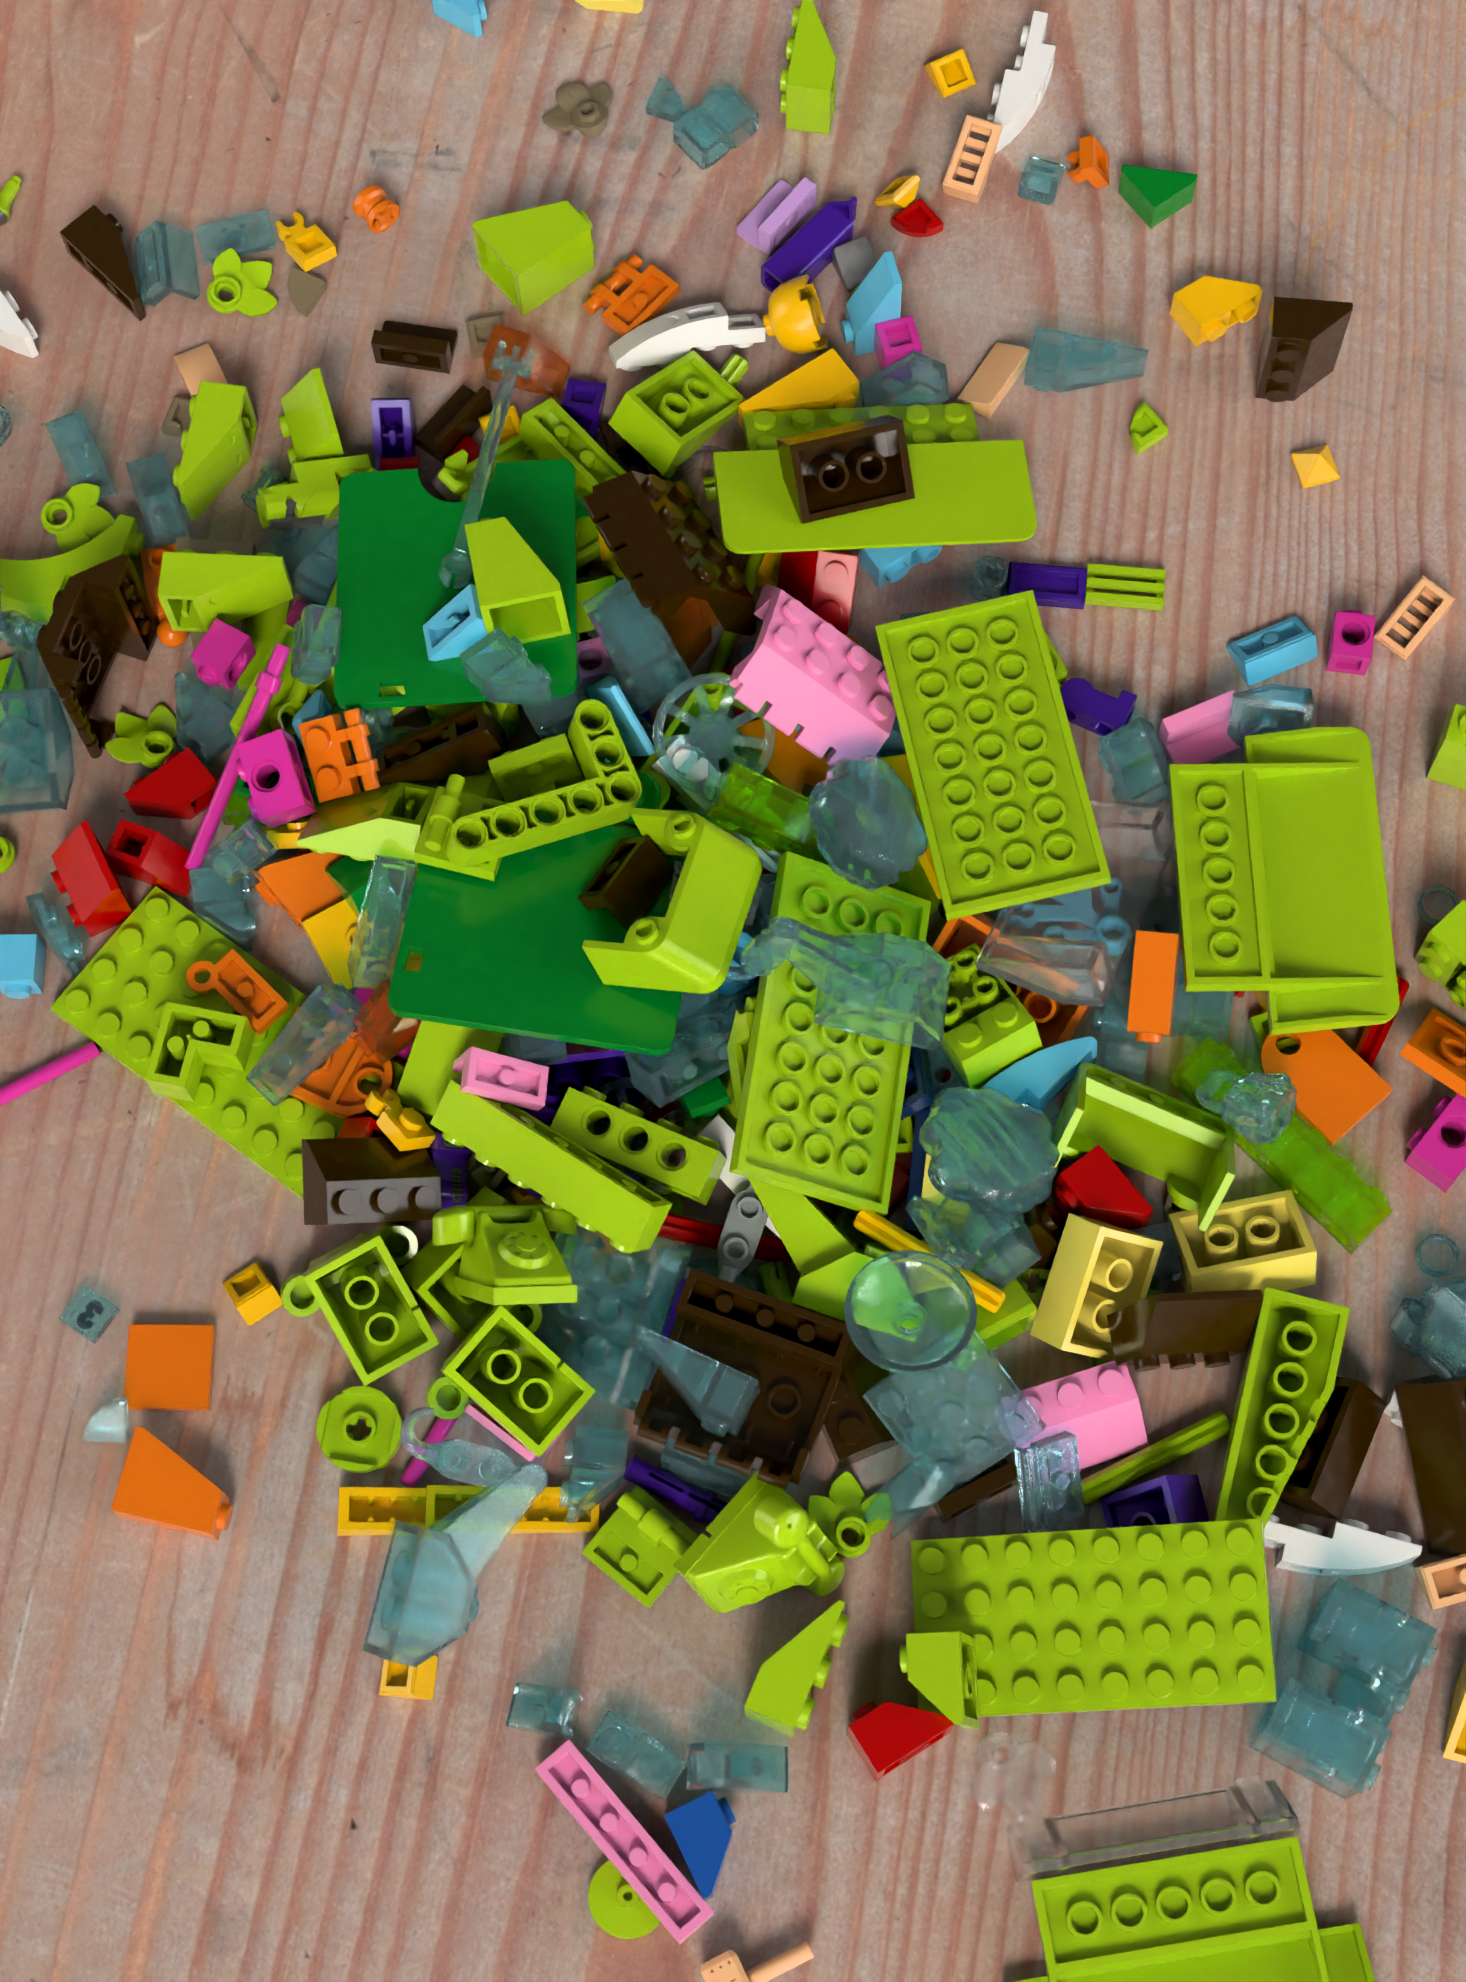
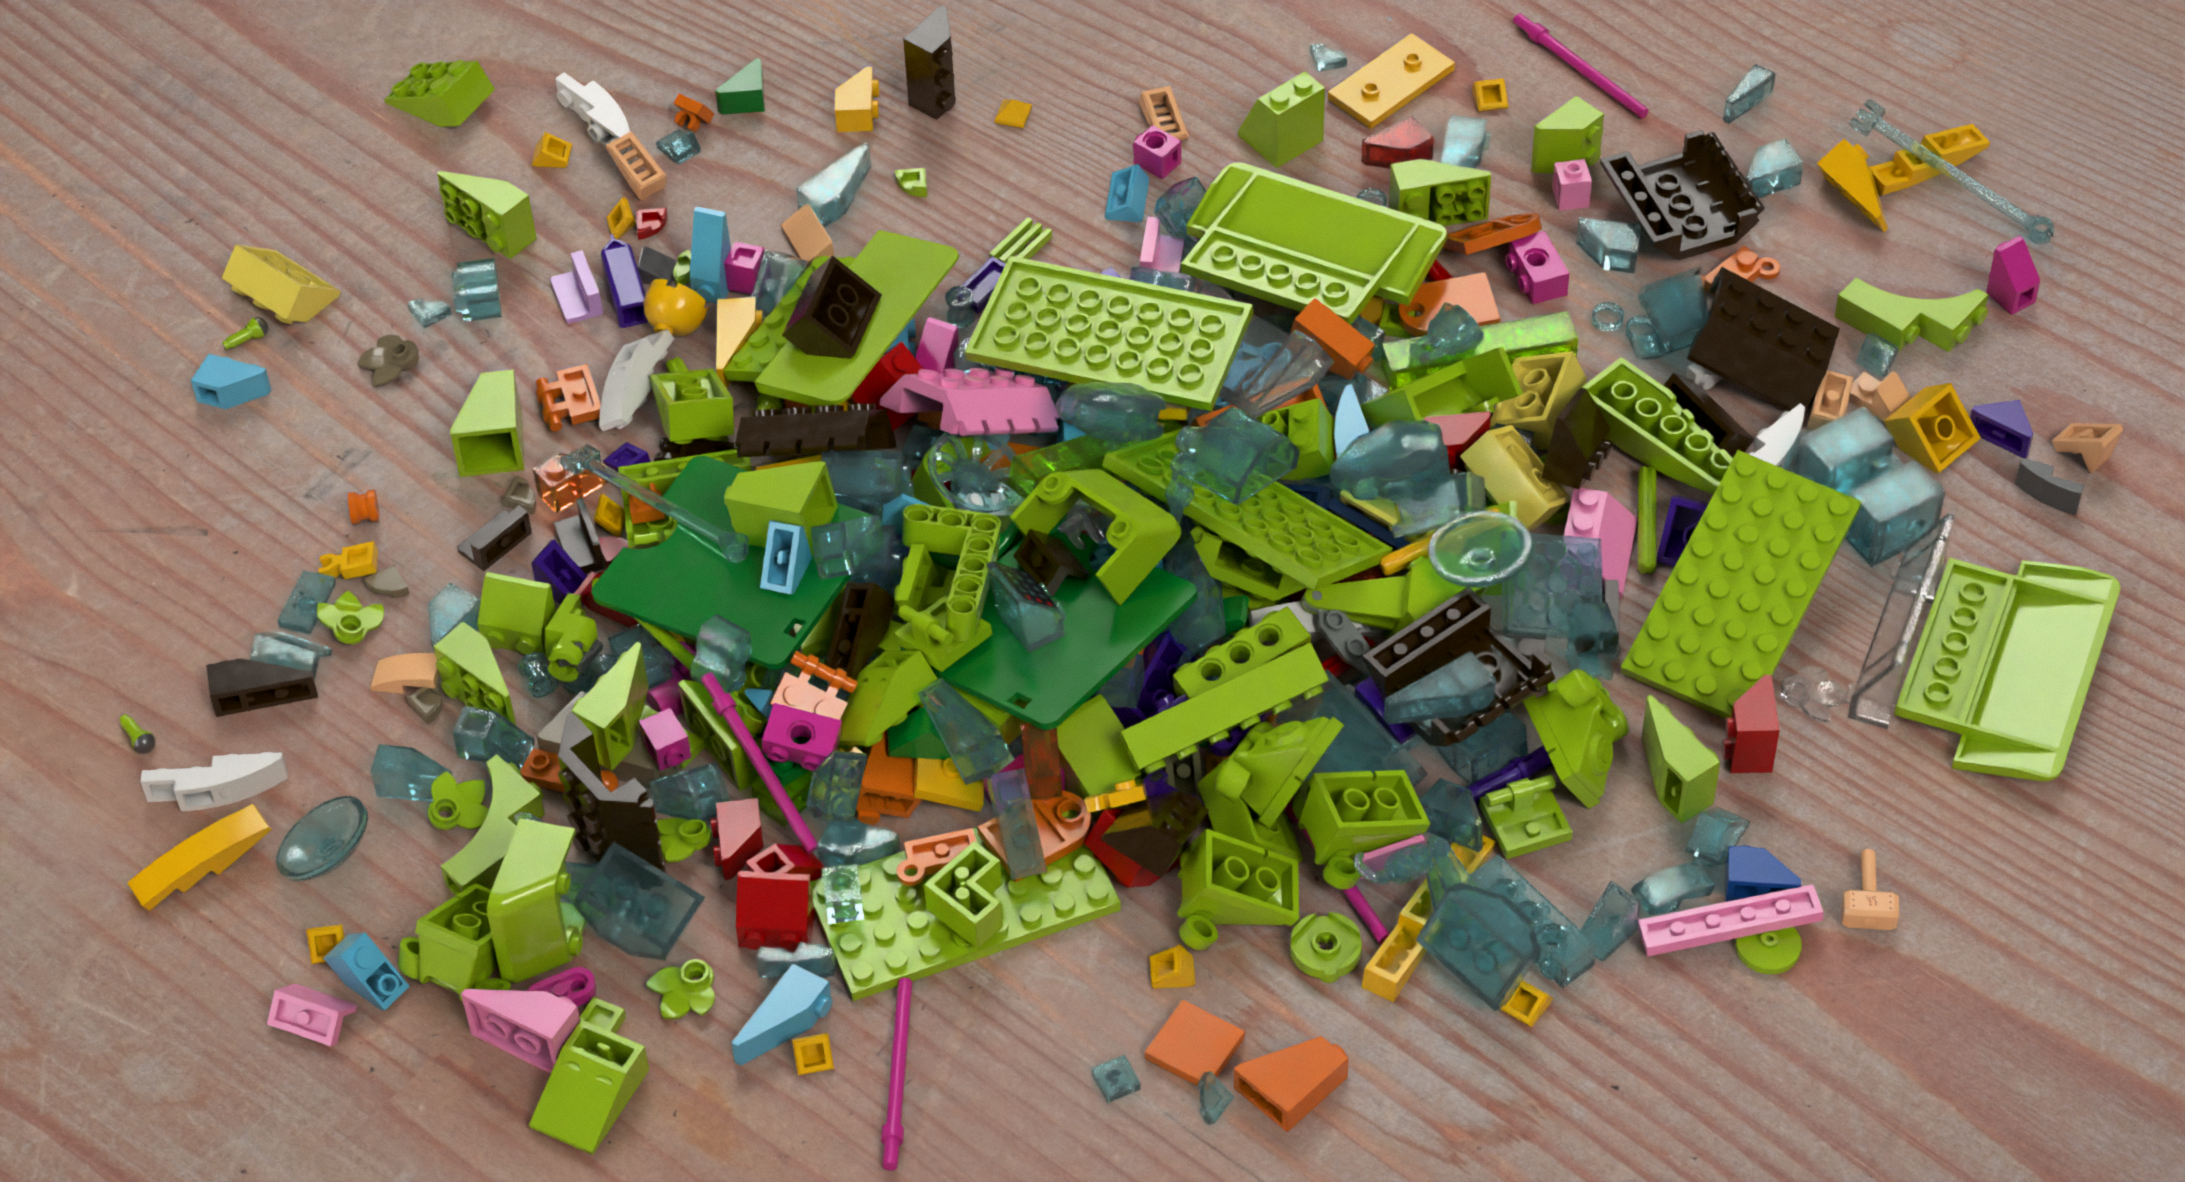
camera: 60 degrees left, 20 degrees down
(142, 945) = (840, 904): none -> clear light blue brick
(278, 370) = (450, 609): none -> clear light blue slope
(491, 1692) = (1573, 949): none -> clear light blue brick
(502, 1078) = (1138, 705): bright pink panel -> none
(521, 447) = (642, 511): none -> orange tile
(531, 892) = (1026, 606): none -> clear light blue slope
(890, 597) = (937, 345): none -> dark pink slope
(945, 1673) = (1733, 665): lime slope -> none
(1049, 1482) = (1632, 568): clear light blue plate -> none

